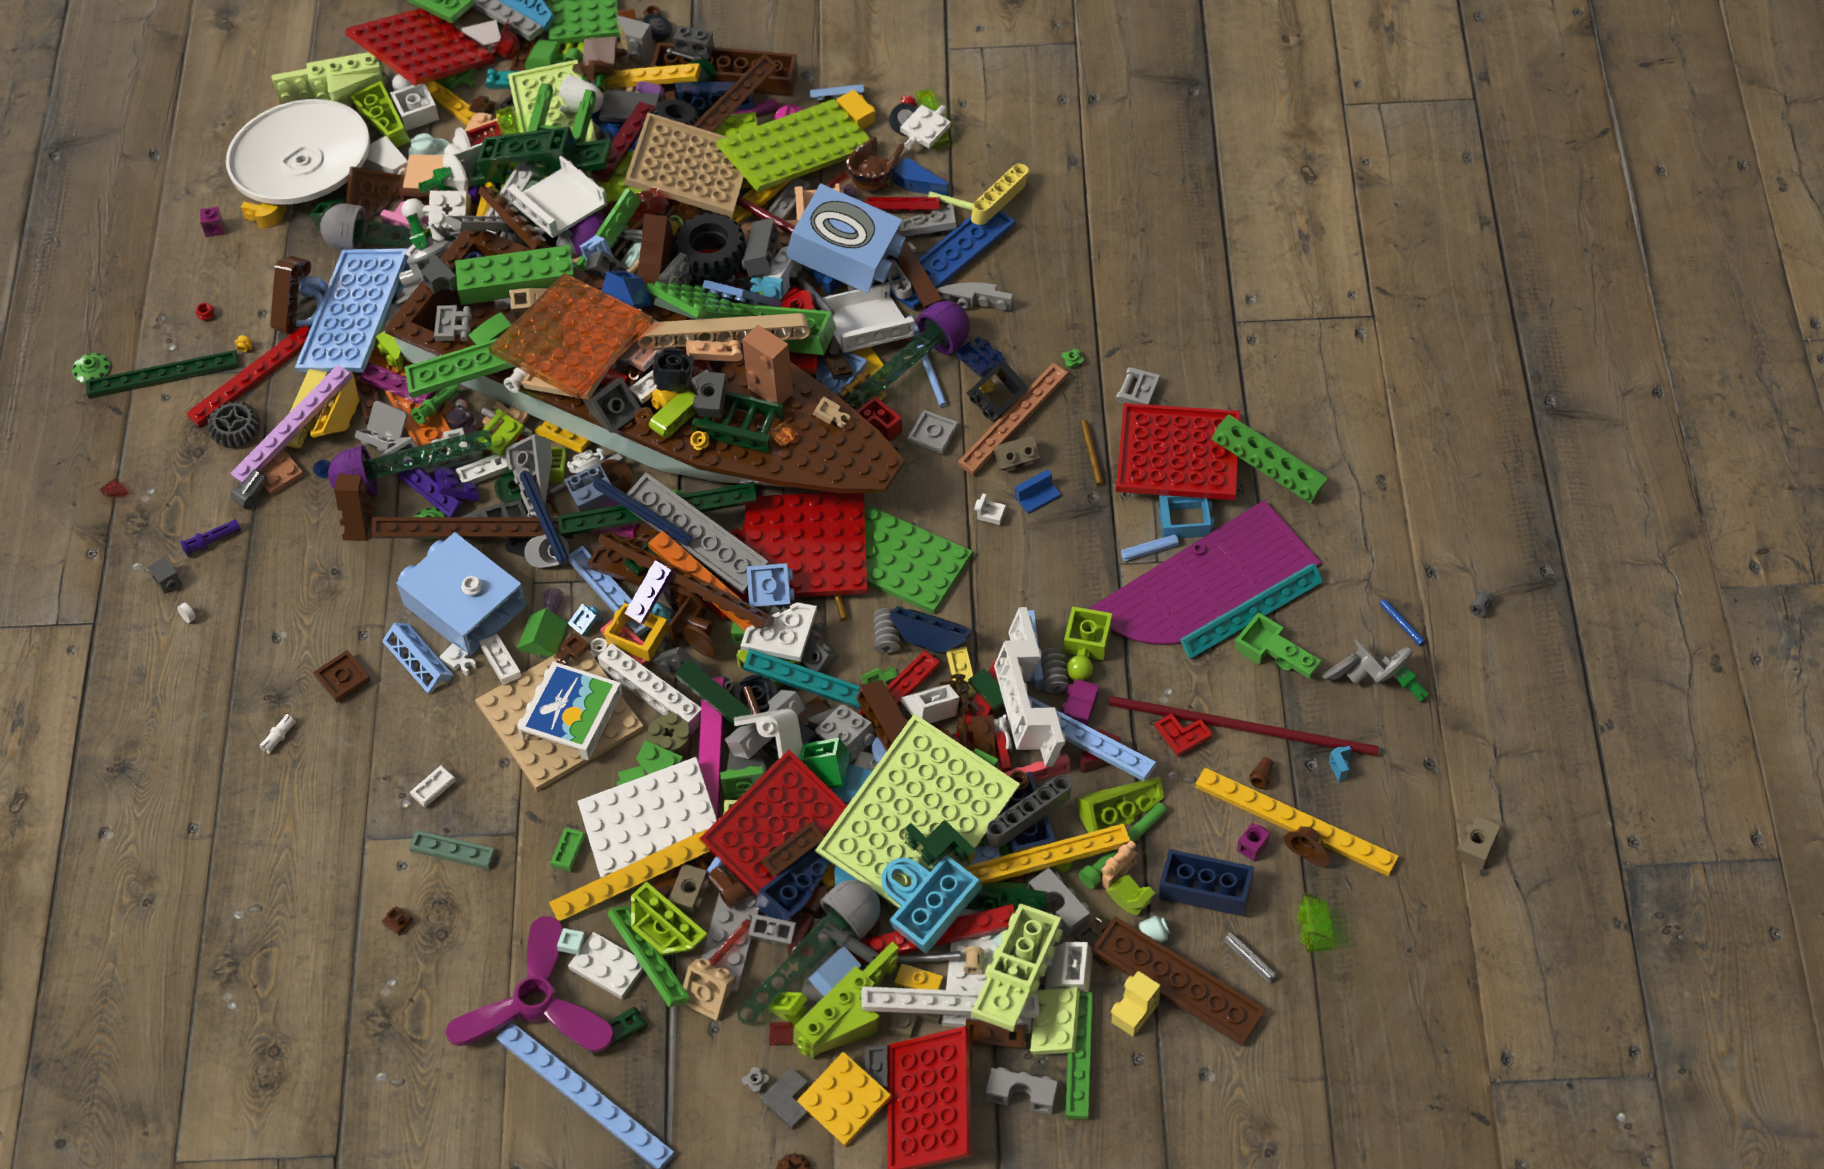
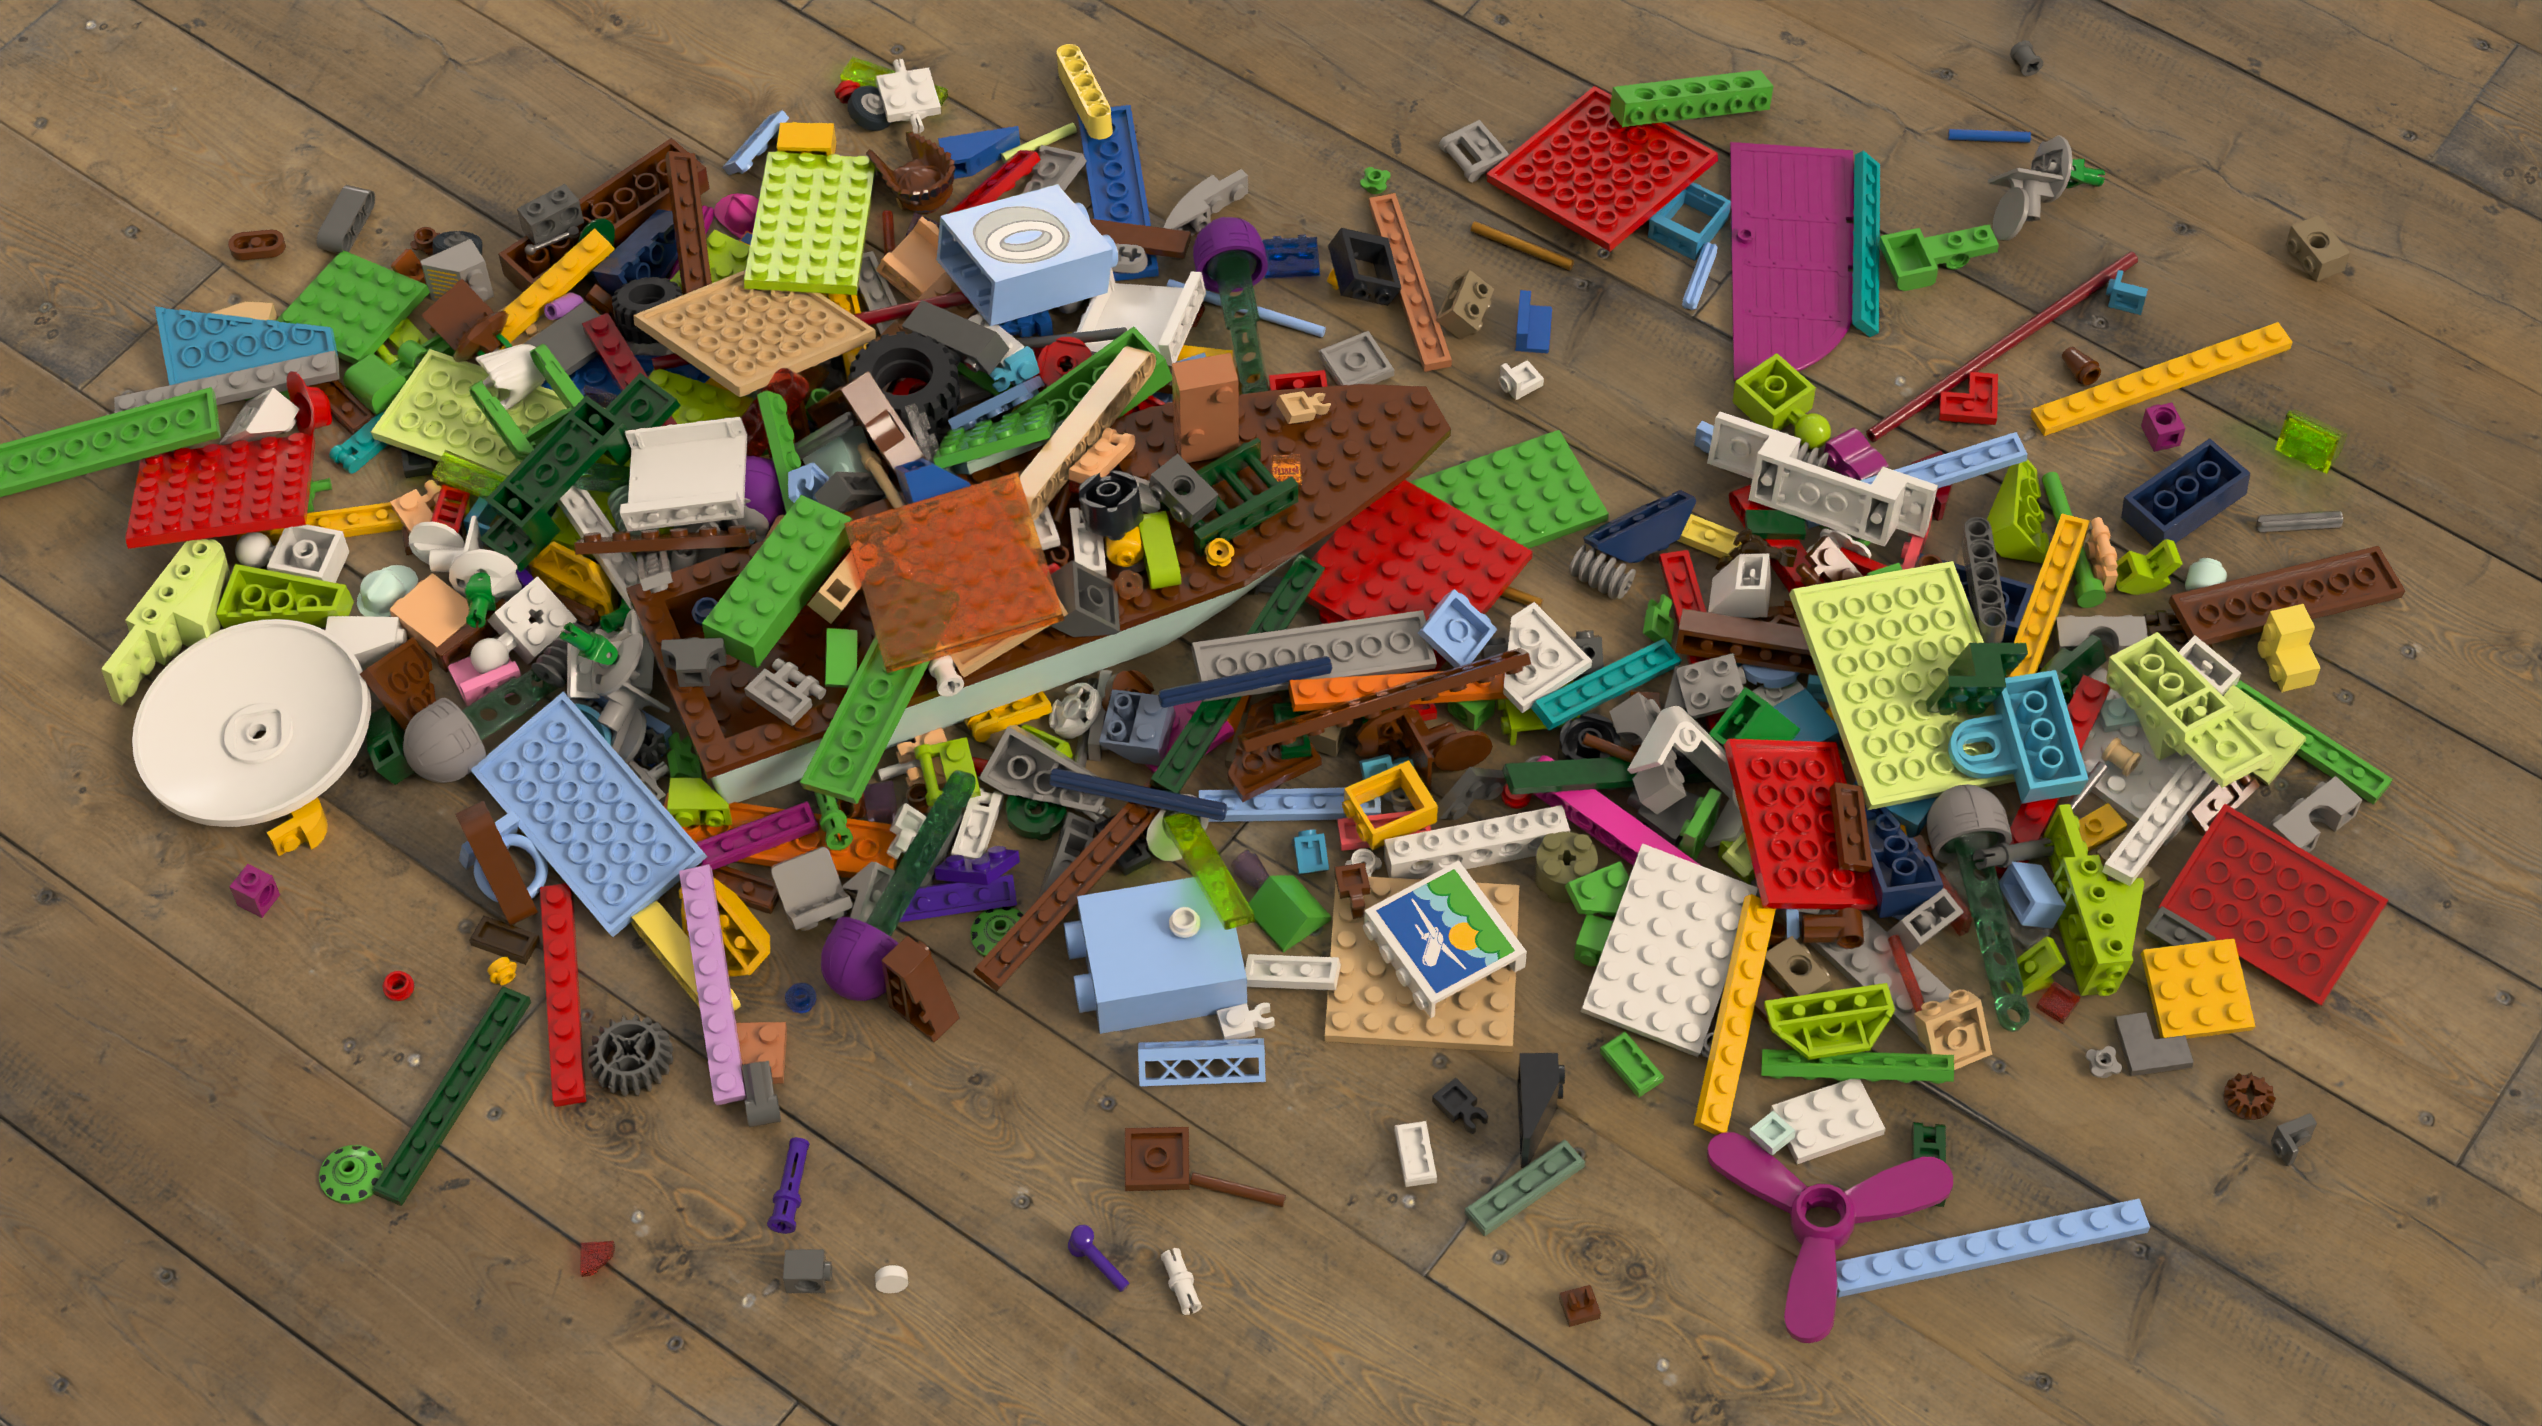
camera: 55 degrees left, 0 degrees up
(264, 333) = (504, 940): none -> dark brown tile
(266, 678) = (1081, 1245): none -> dark purple piece
(352, 723) = (1238, 1189): none -> reddish brown bar
(478, 784) = (1458, 1103): none -> black plate
(481, 104) = (382, 491): reddish brown plate -> none
(497, 818) = (1538, 1088): none -> black slope
(513, 576) = (1209, 870): none -> clear neon green tile
(649, 592) = (1369, 745): plate -> none
(1308, 844) = (2210, 383): reddish brown piece -> none

